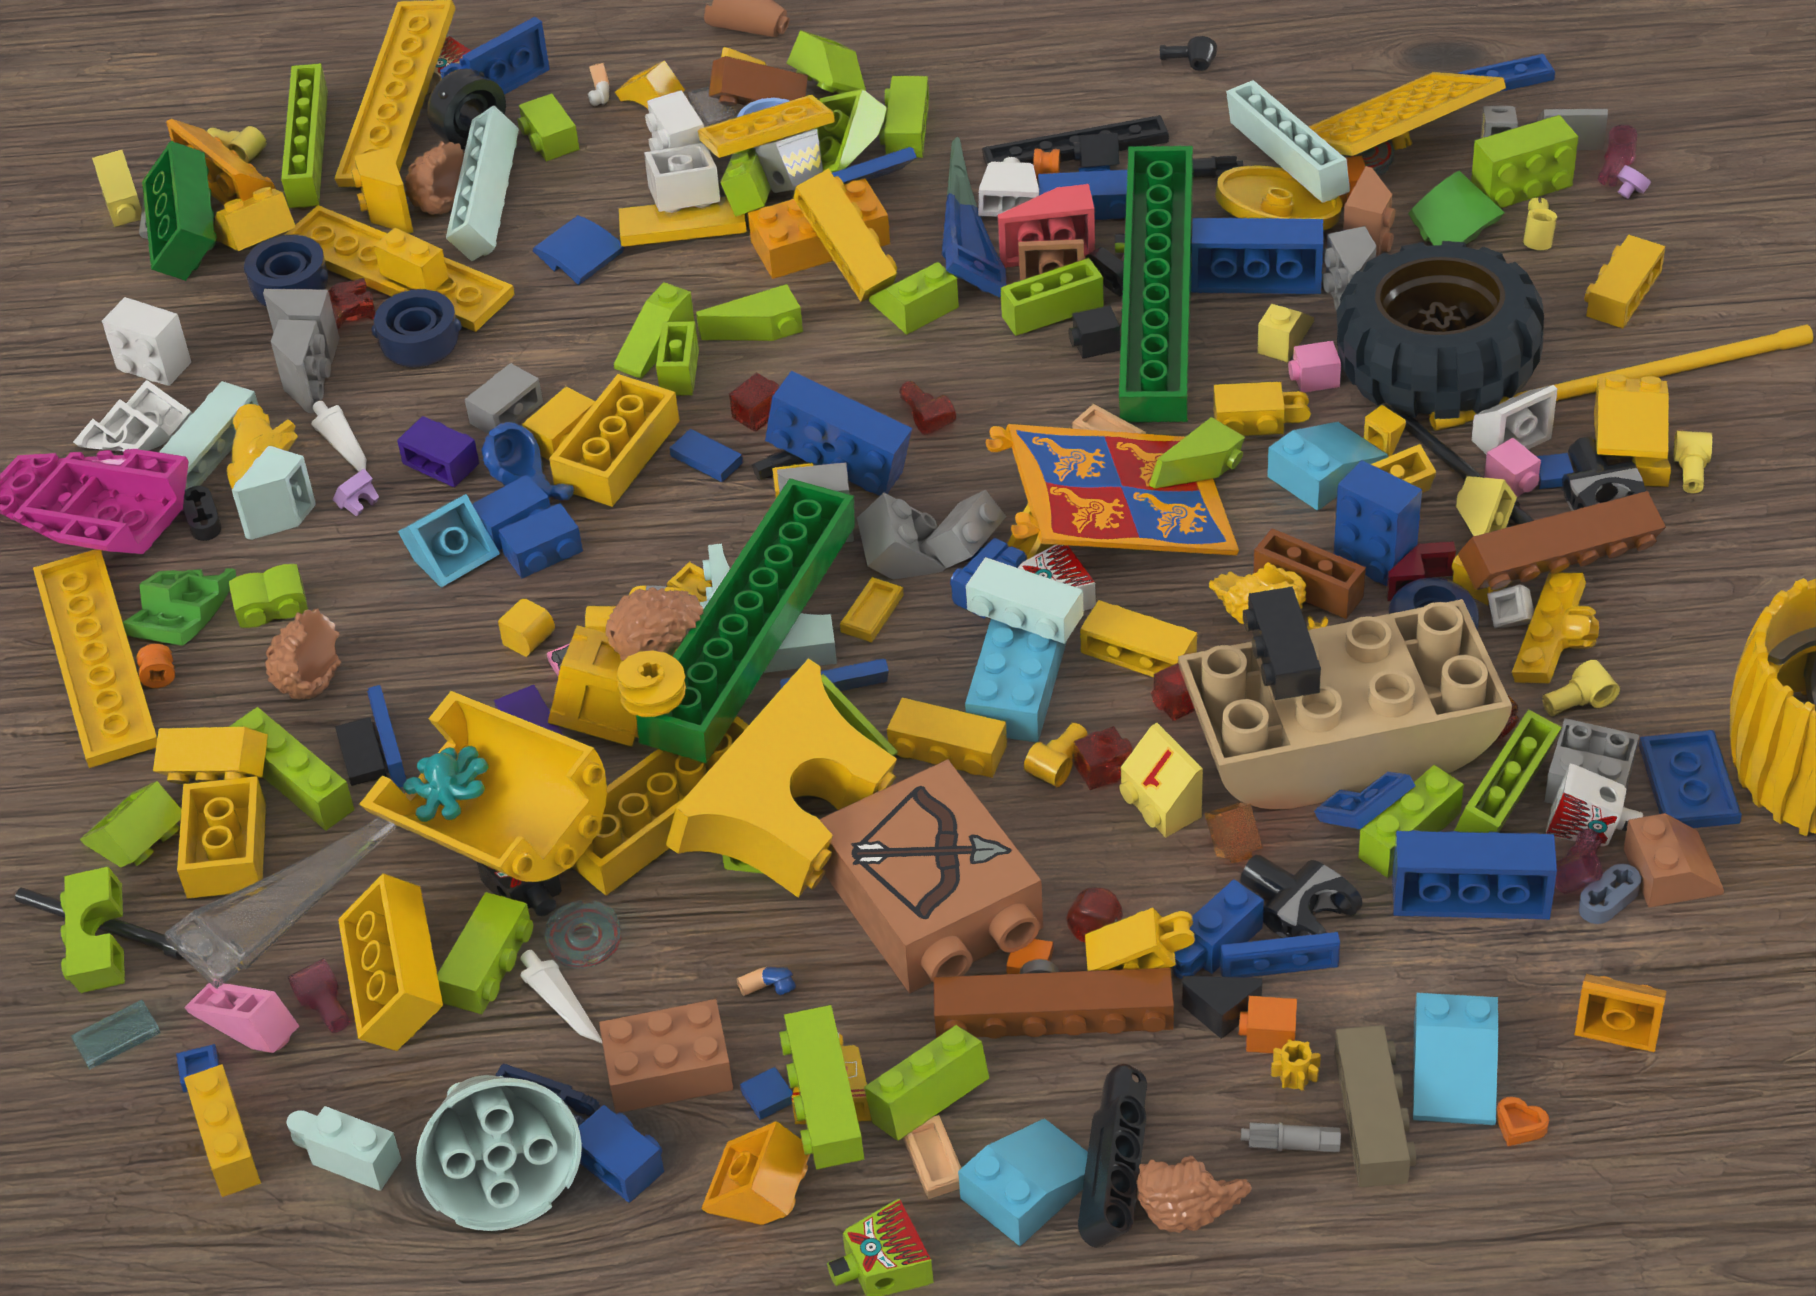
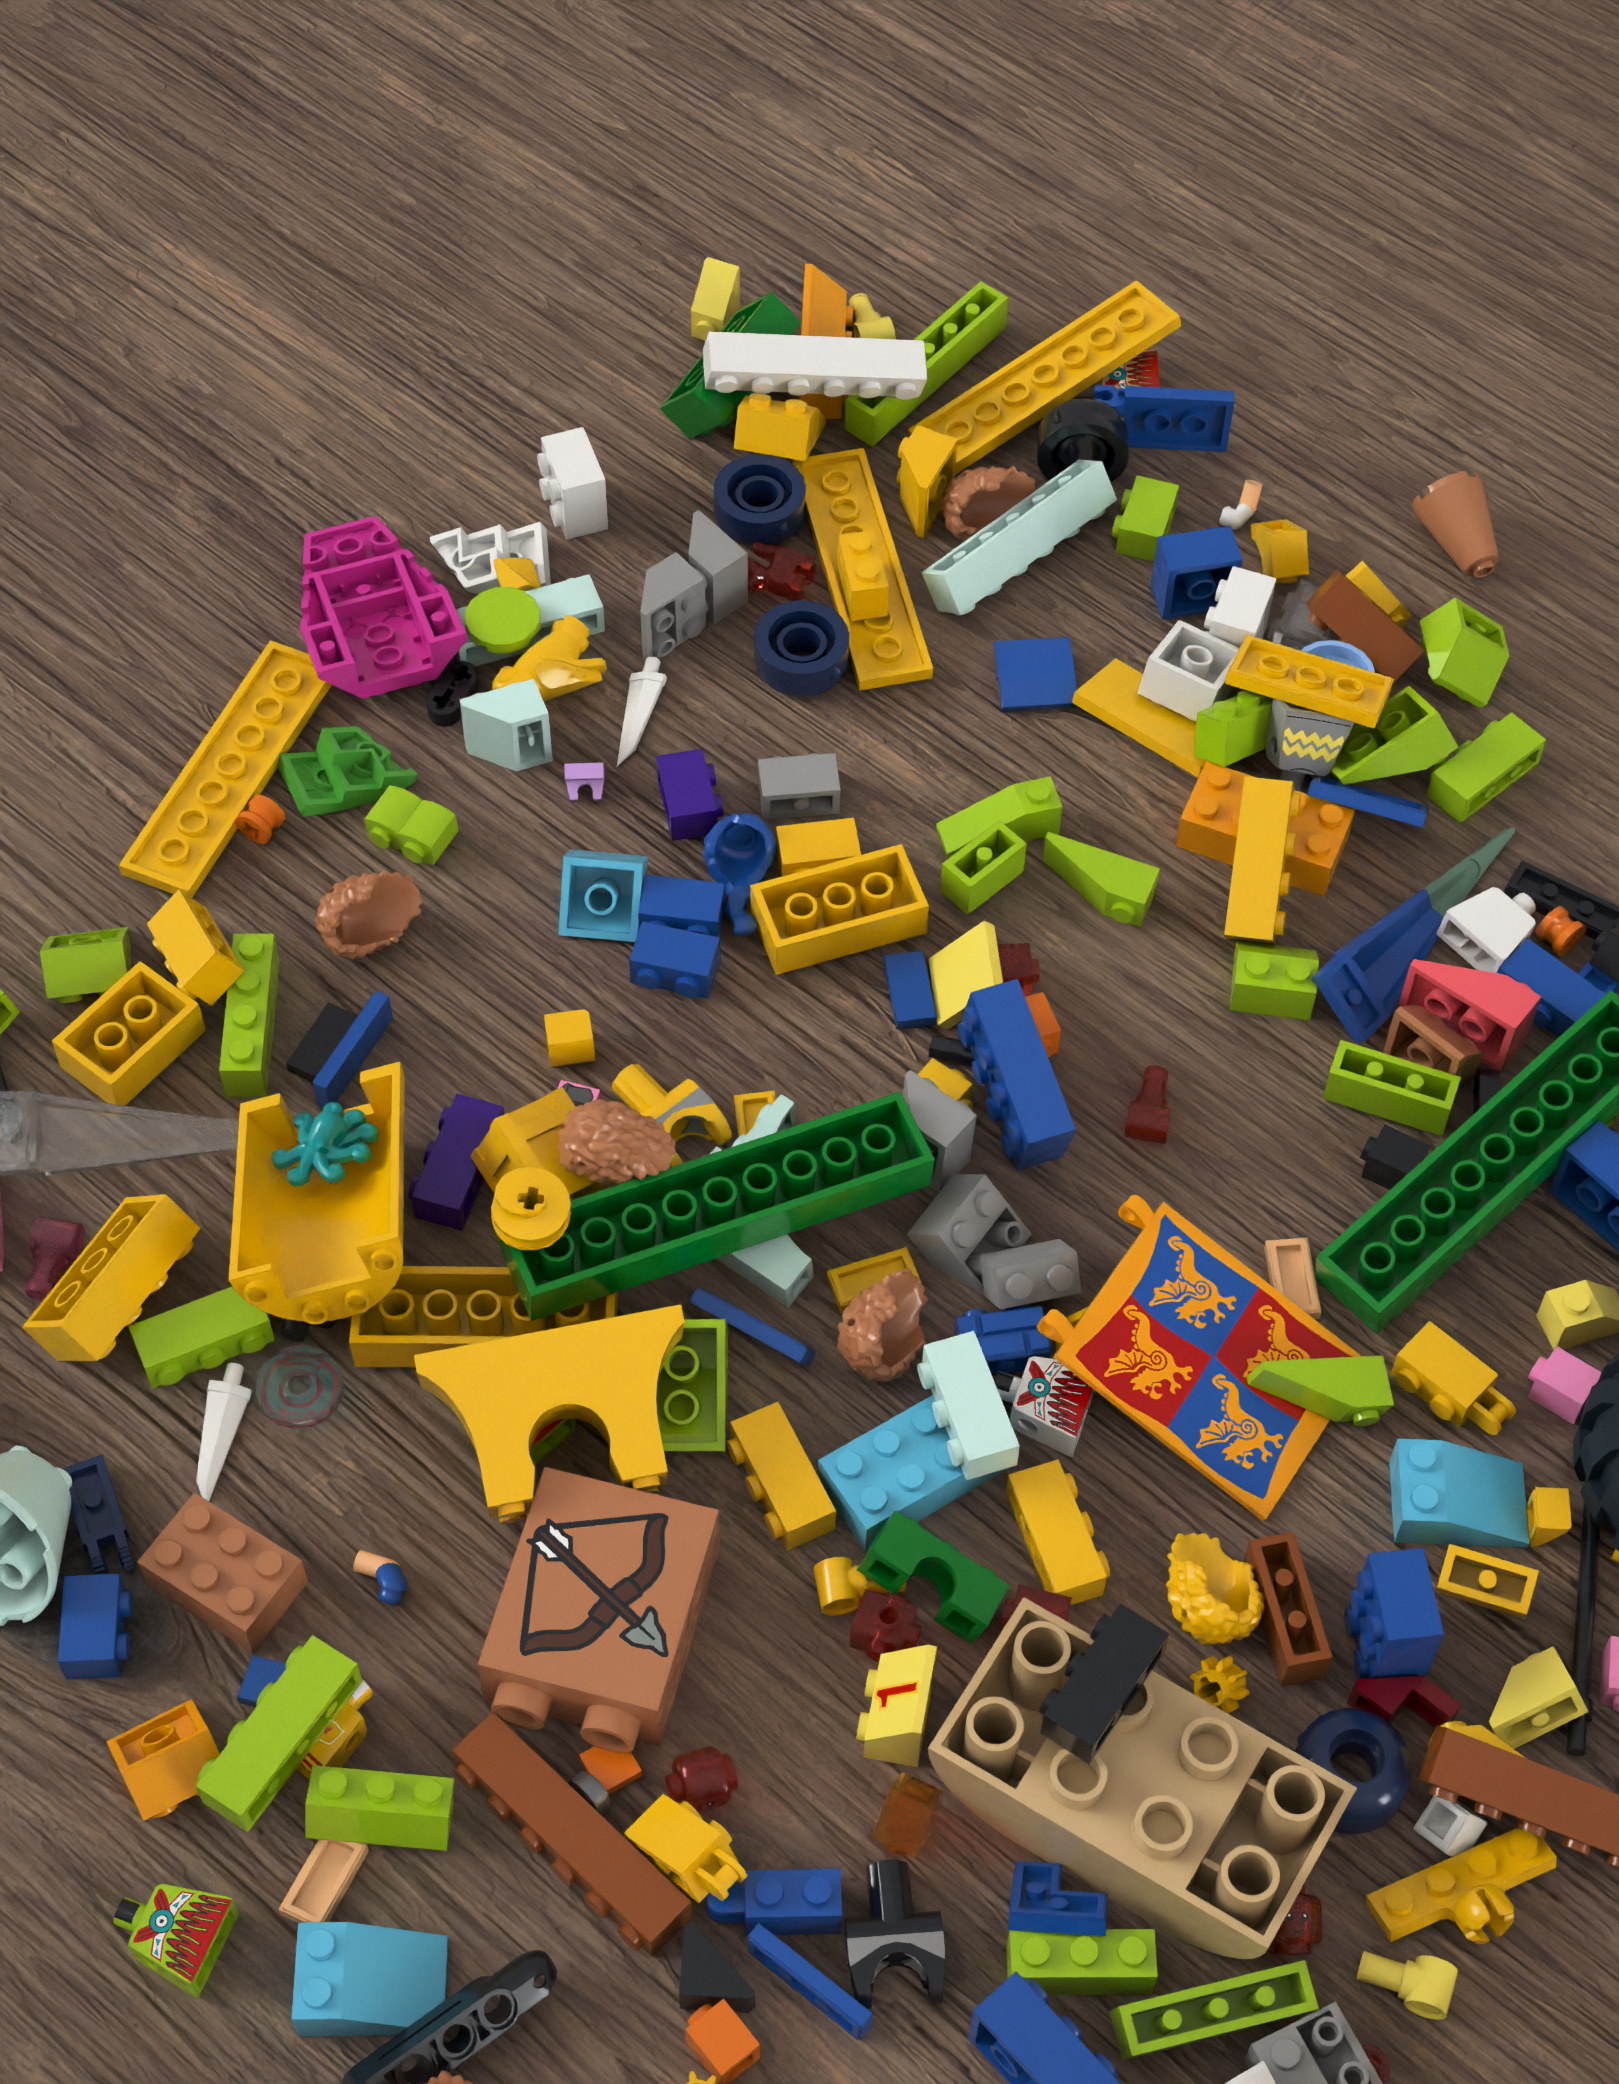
camera: 40 degrees right, 10 degrees up
(169, 417) = (516, 573): none -> yellow slope
(198, 437) = (502, 619): none -> lime tile
(246, 164) = (814, 365): none -> white brick
(617, 129) = (1190, 570): none -> blue brick
(737, 415) = (963, 968): none -> light yellow tile
(911, 624) = (883, 1327): none -> nougat piece
(1125, 703) = (966, 1589): none -> green arch

